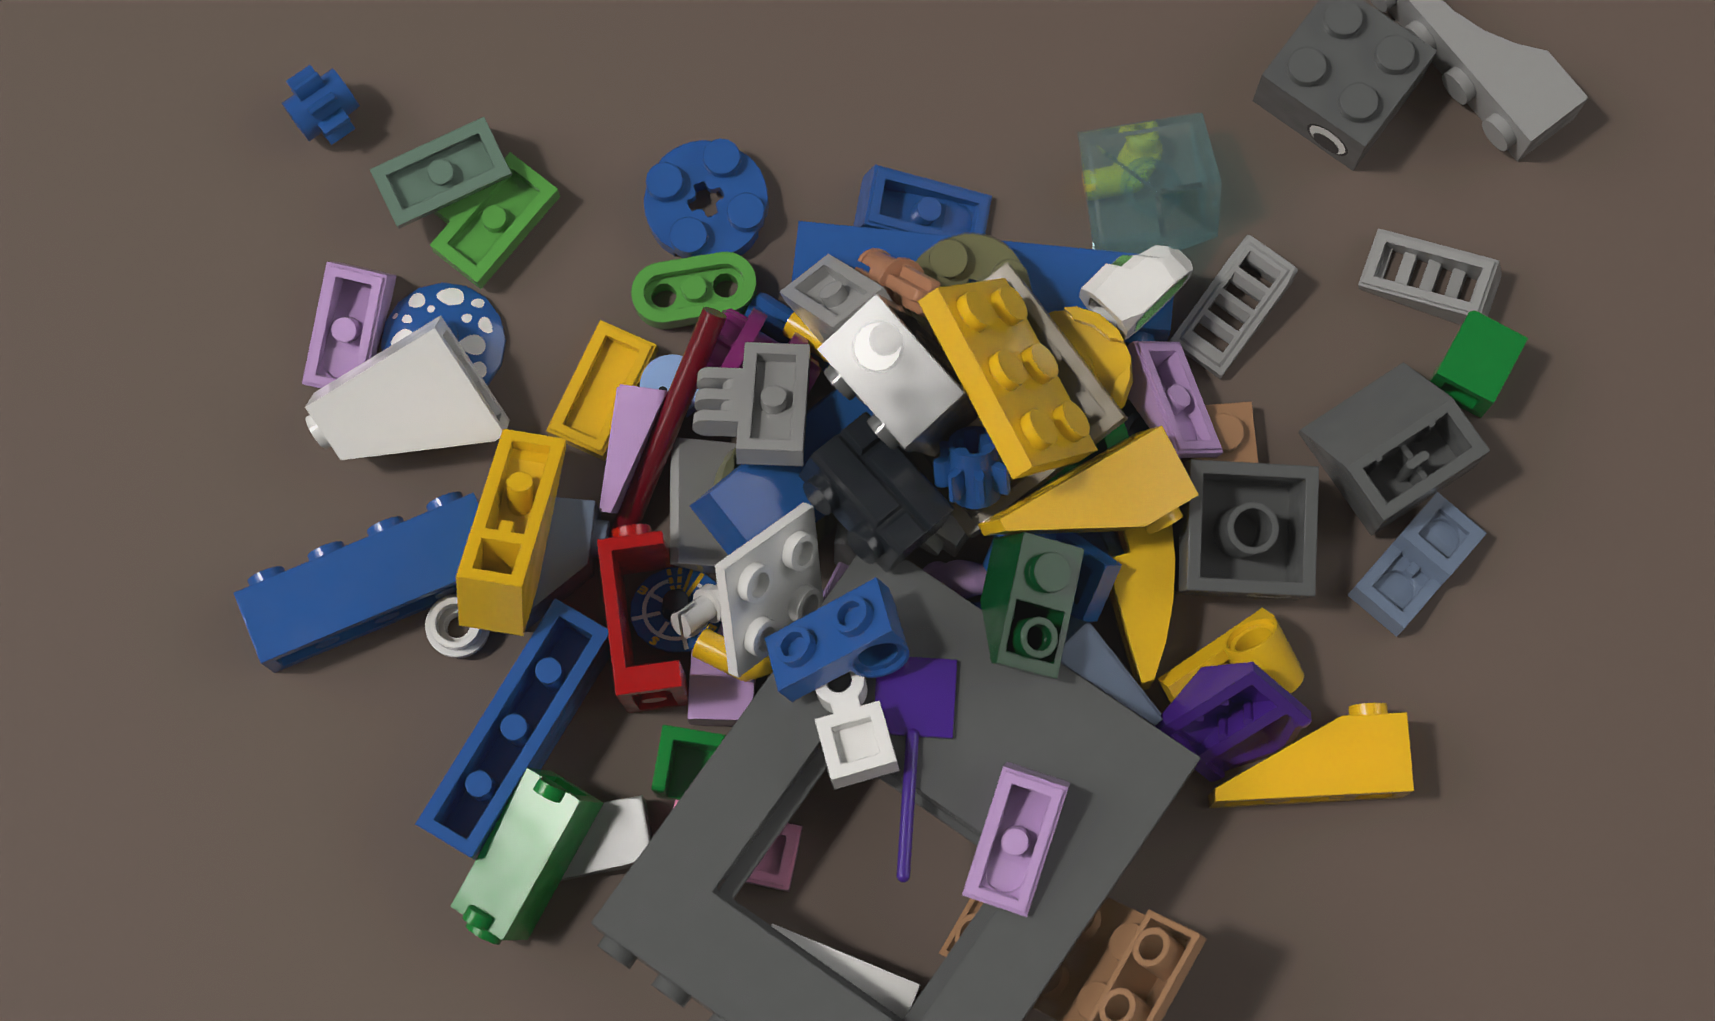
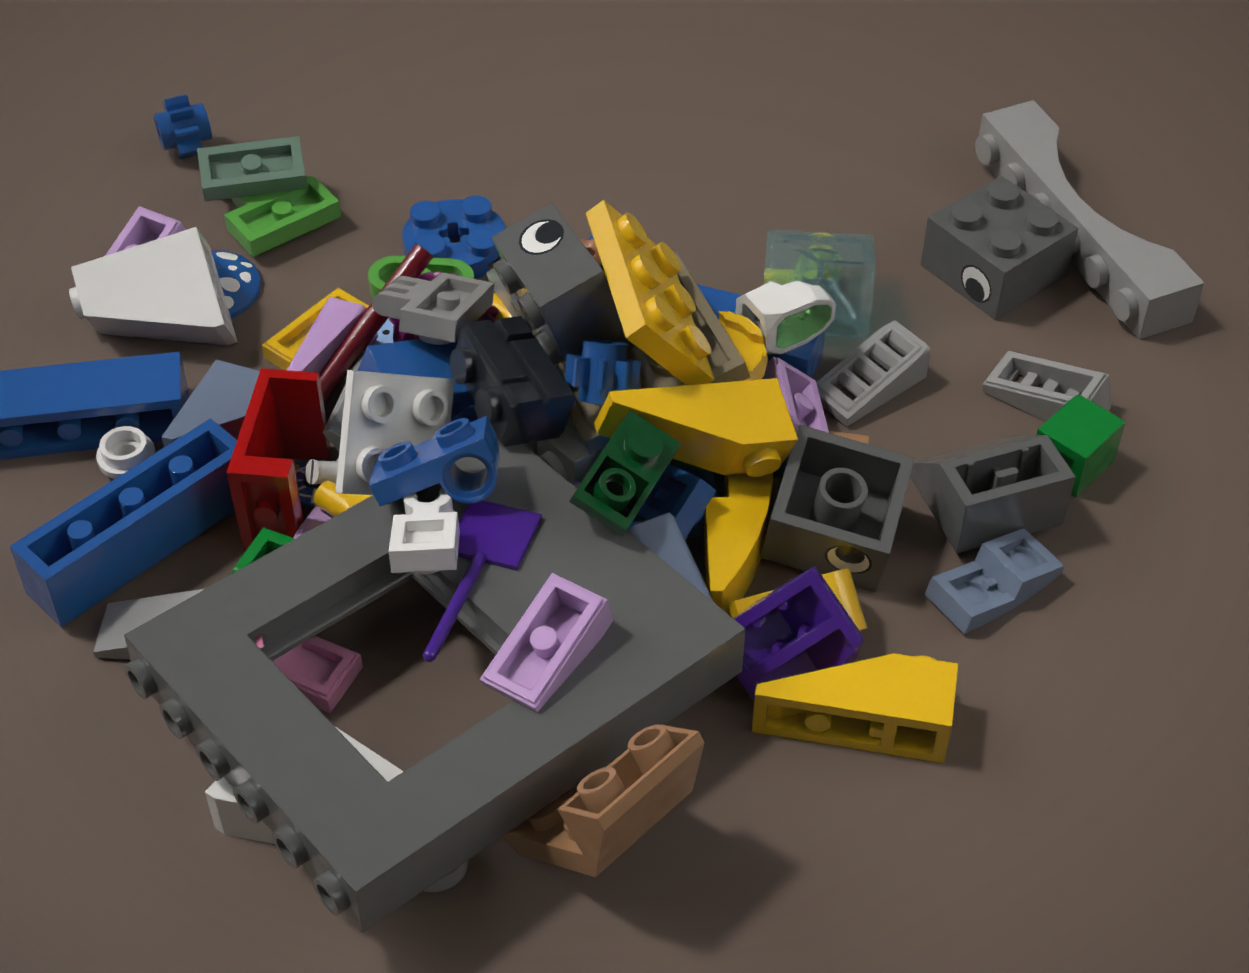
camera: 10 degrees right, 30 degrees down
(510, 533) = (187, 370): yellow slope -> none
(525, 857) = (90, 612): brick -> none

